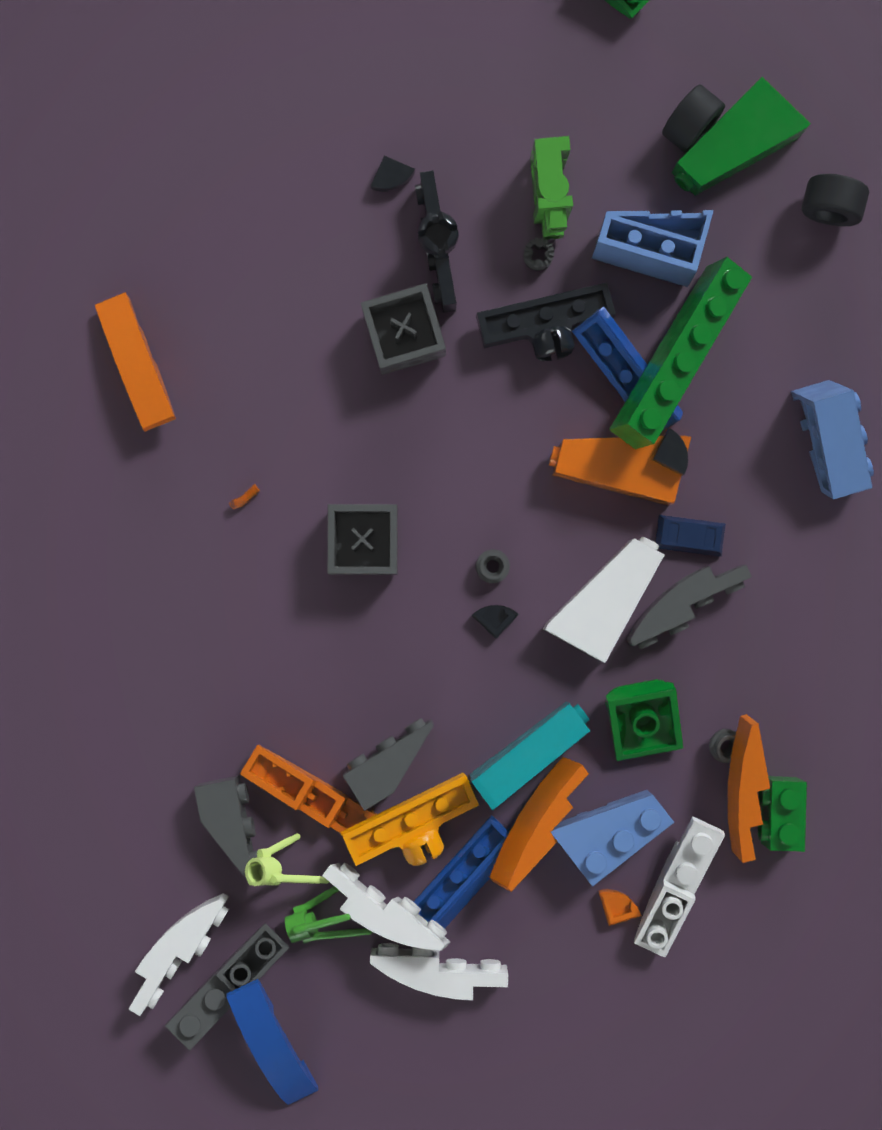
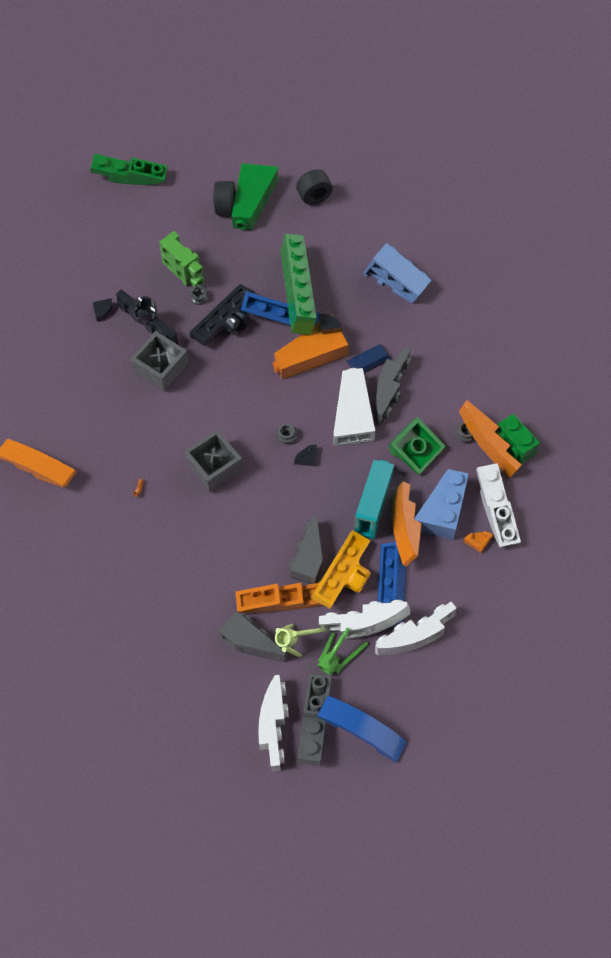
camera: 30 degrees left, 25 degrees down
(654, 243) = (248, 255): medium blue wedge -> none

